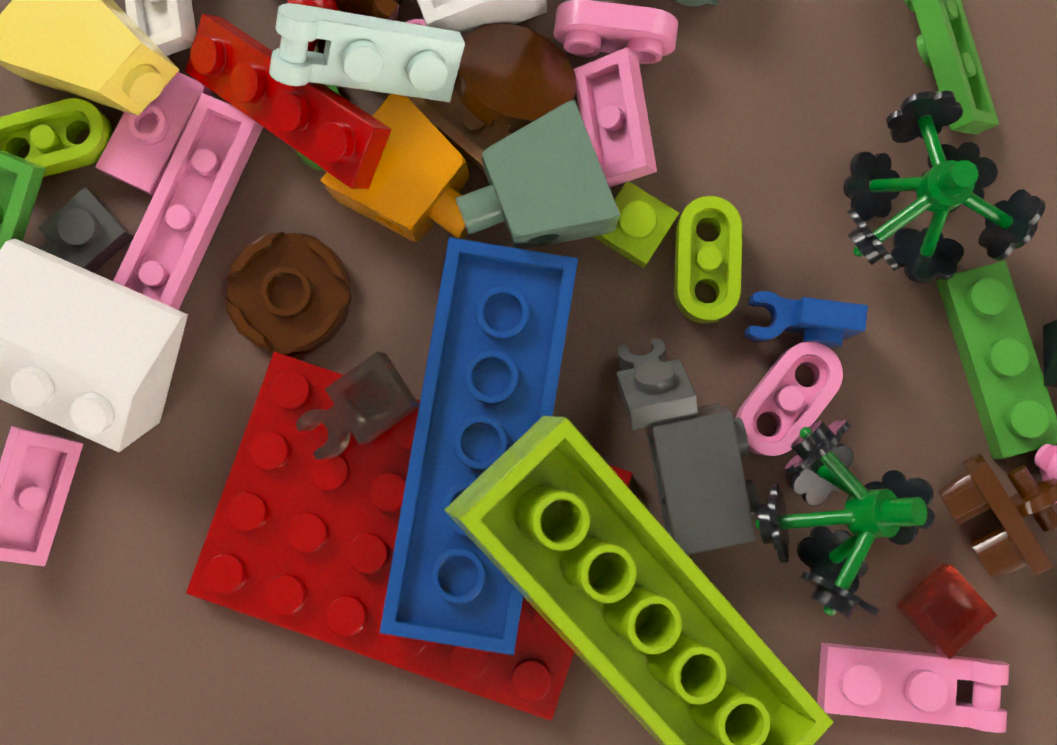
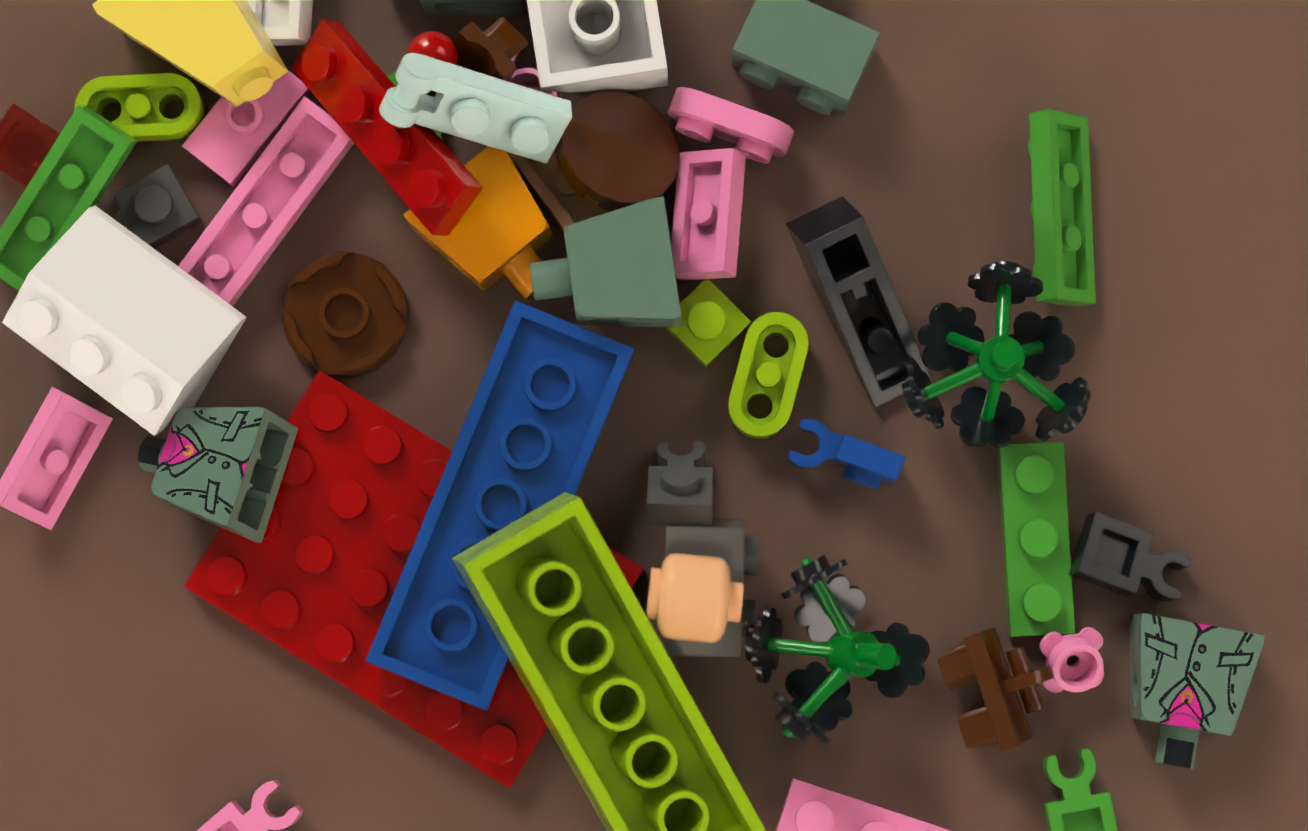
camera: 15 degrees right, 0 degrees up
(195, 466) = (221, 465): none -> sand green torso
(365, 404) = (399, 443): clear smoke plate -> none
(702, 495) = (693, 598): none -> light nougat head
(777, 164) = (857, 296): none -> black slope
(787, 400) = (812, 529): bright pink plate -> none
(946, 610) = (917, 770): clear red plate -> none

